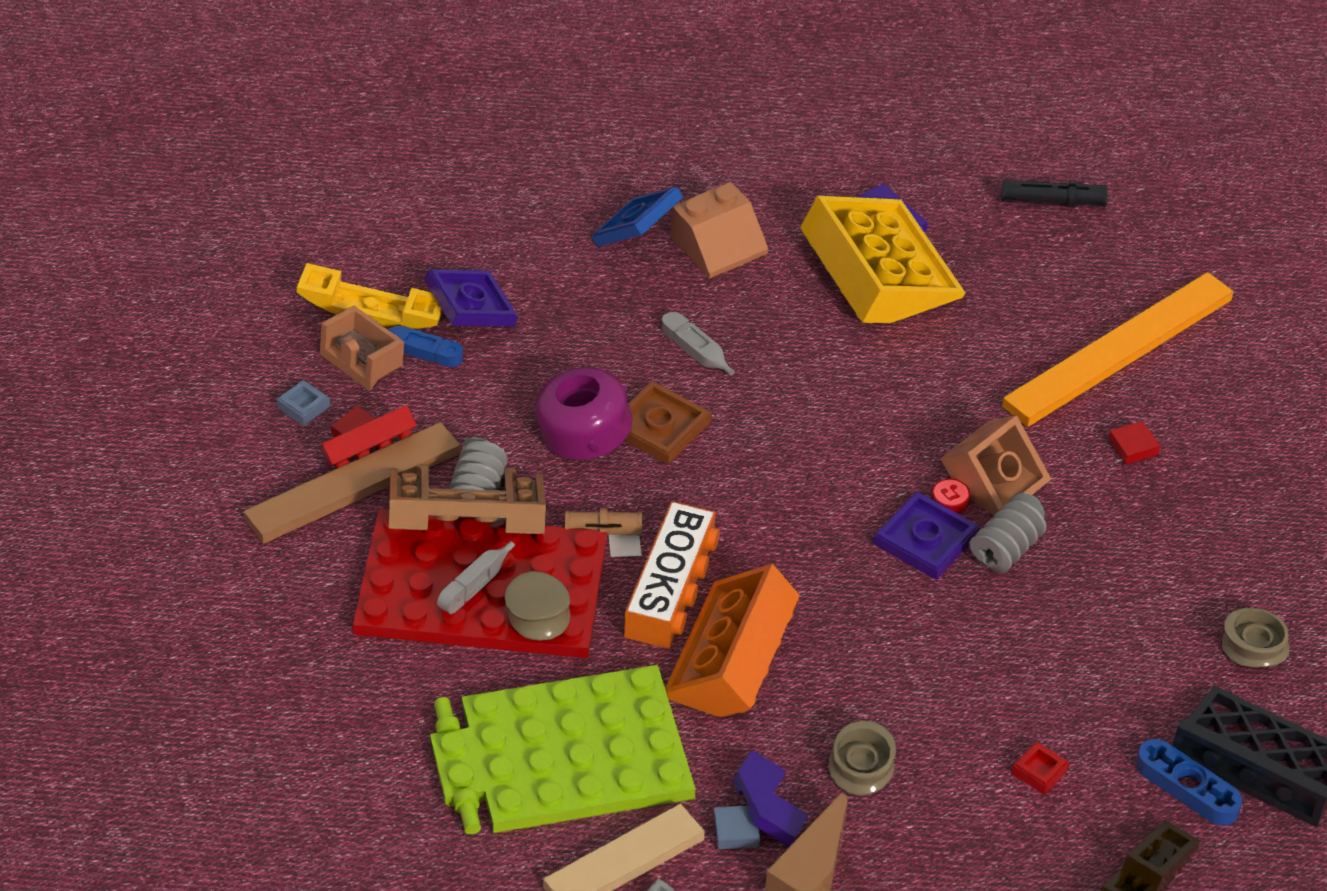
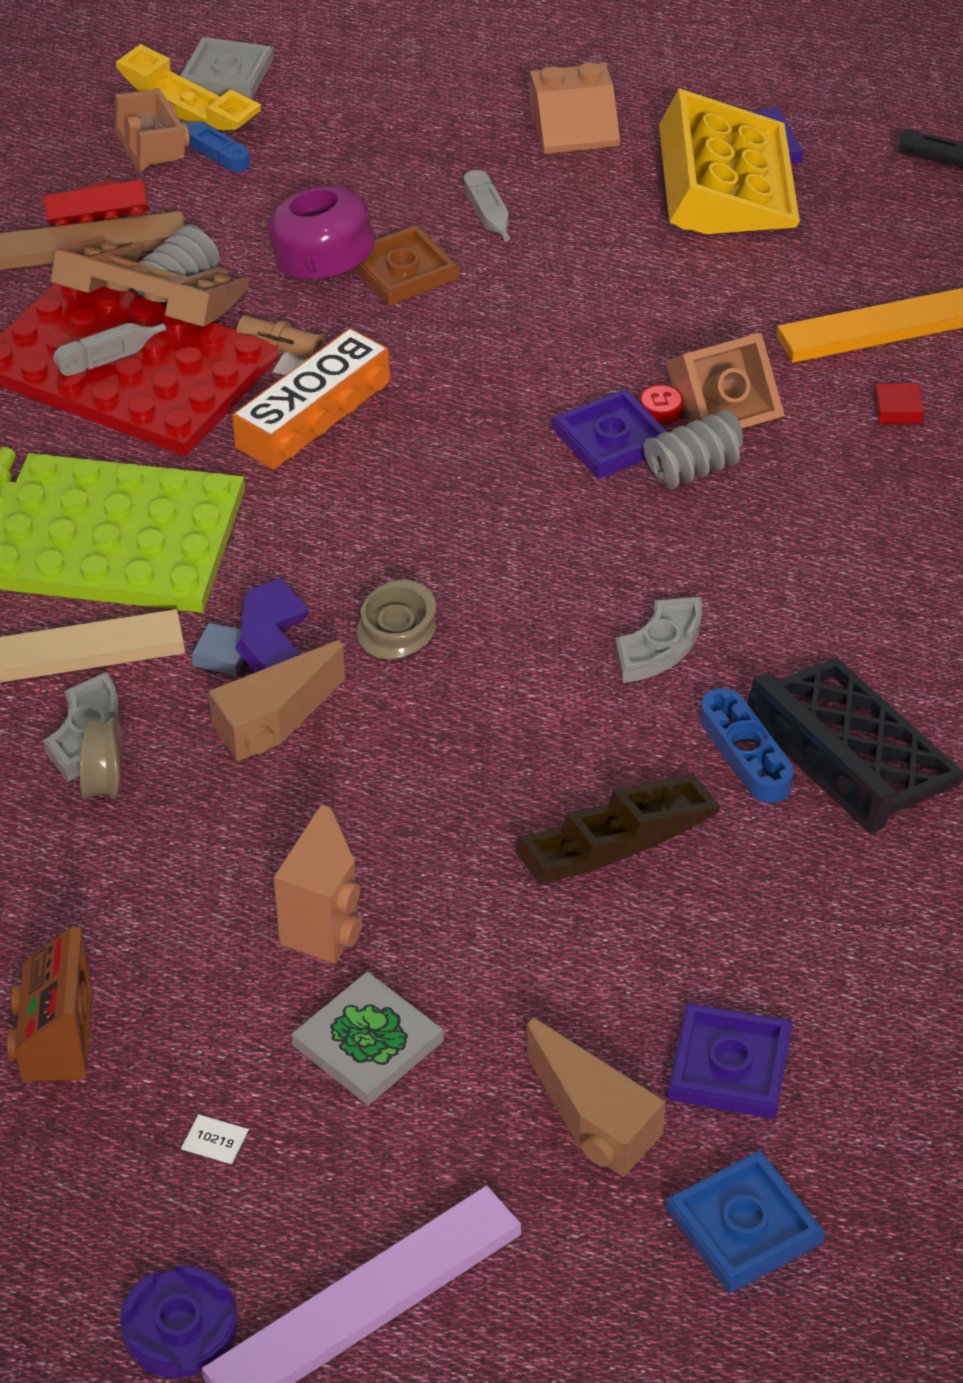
camera: 25 degrees right, 0 degrees up
(303, 403) = (66, 166): sand blue tile -> none
(383, 261) = (228, 65): none -> light grey tile
(470, 298) = (284, 111): dark purple tile -> none
(538, 605) = (150, 387): dark tan piece -> none
(637, 216) = (494, 76): blue tile -> none
(733, 642) = (335, 477): orange slope -> none
(1040, 768) = (588, 685): red tile -> none
(1074, 710) = (662, 641): none -> light grey tile
(1255, 638) = (914, 623): dark tan piece -> none

